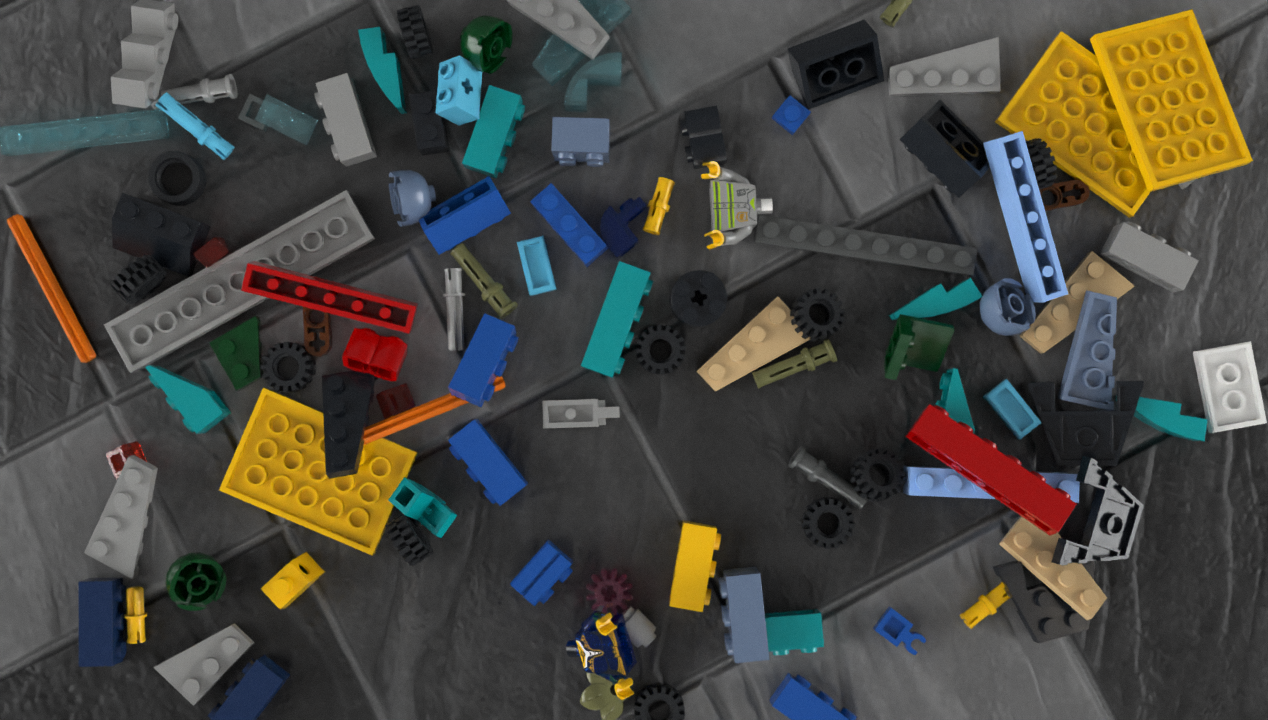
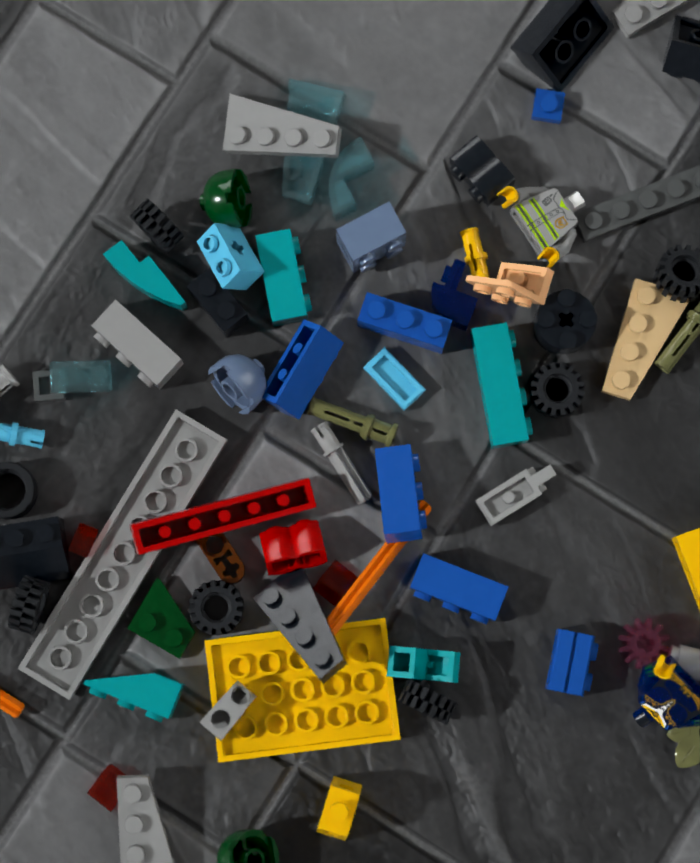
camera: 30 degrees left, 5 degrees down
(245, 454) = (228, 710): none -> light grey leg
(678, 244) = (515, 283): none -> light nougat bracket

